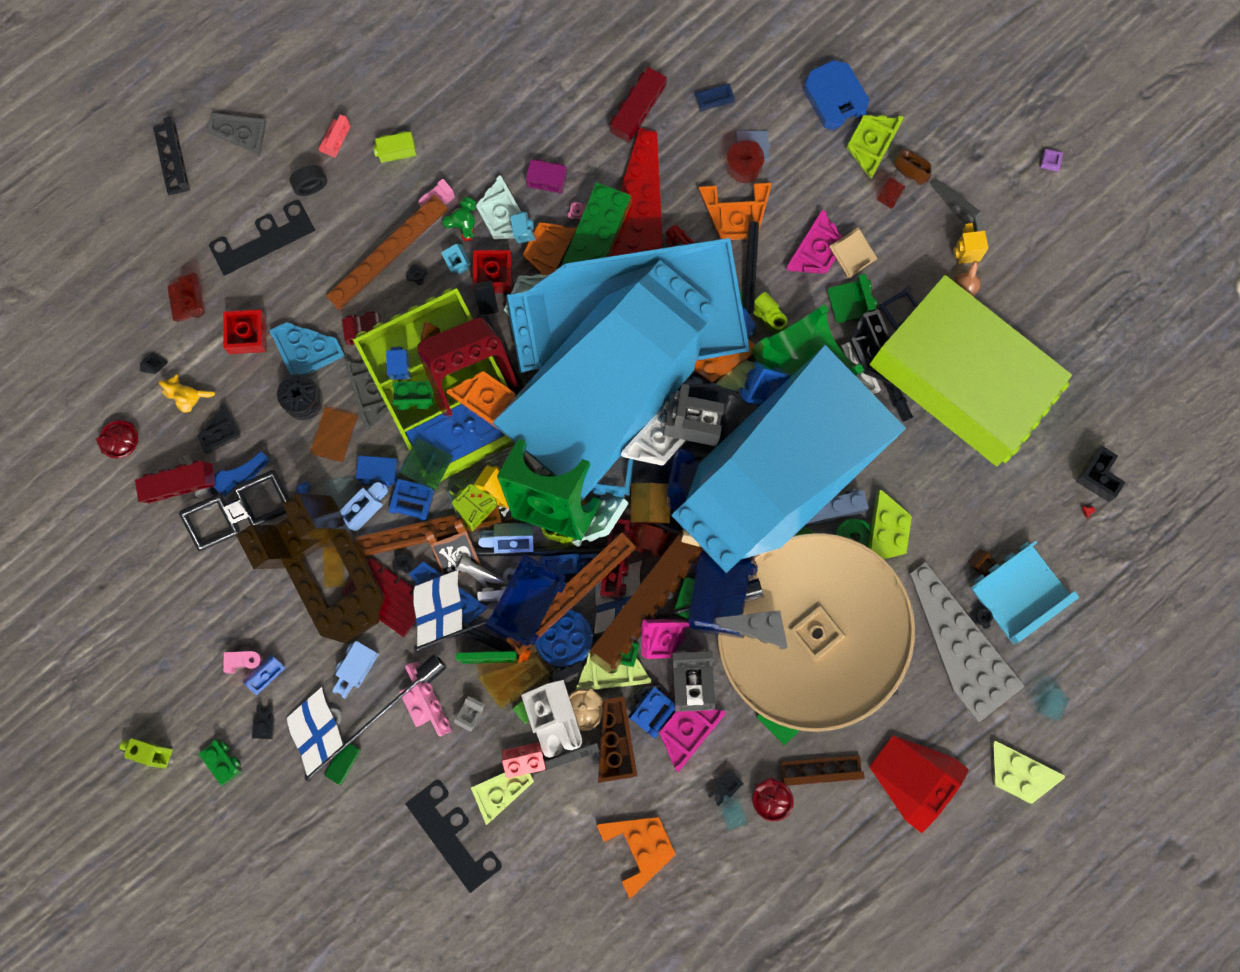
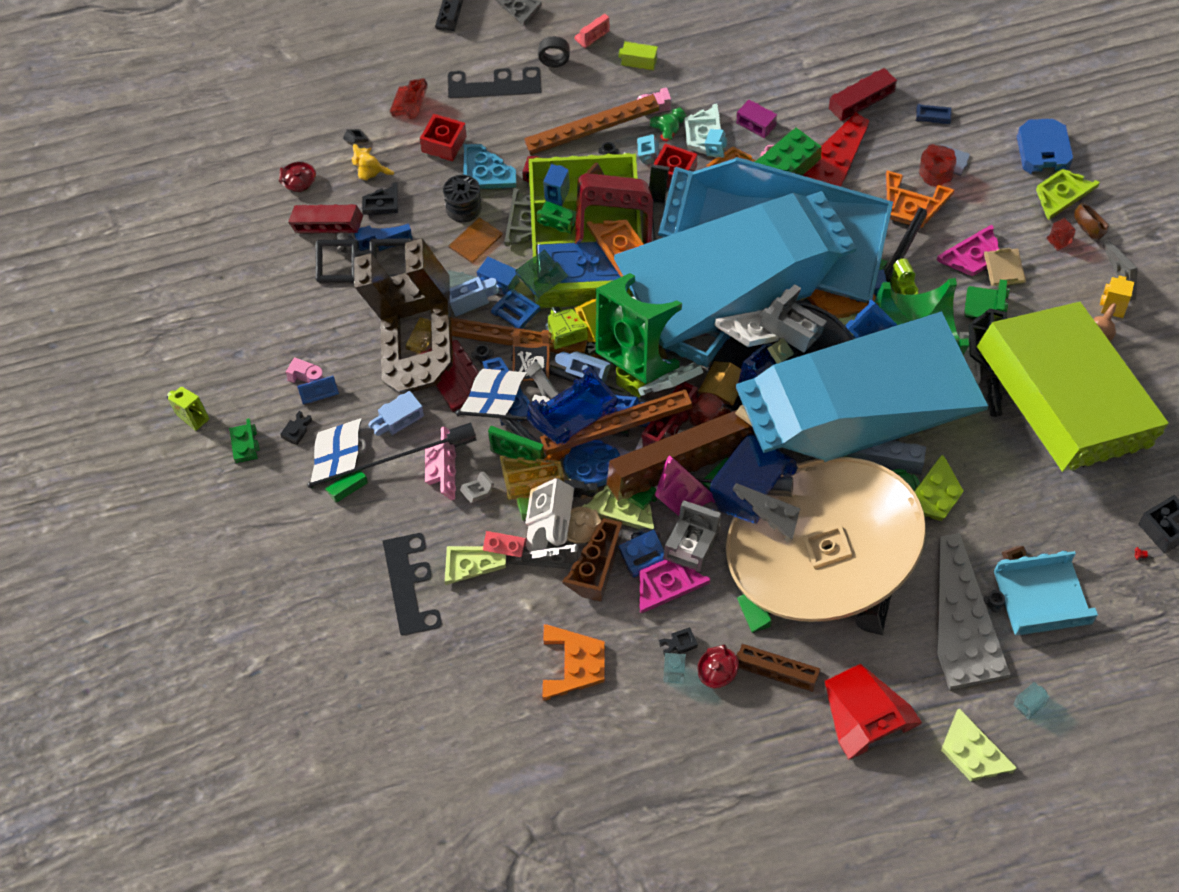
camera: 25 degrees right, 20 degrees down
(694, 454) = (780, 351): none -> olive plate

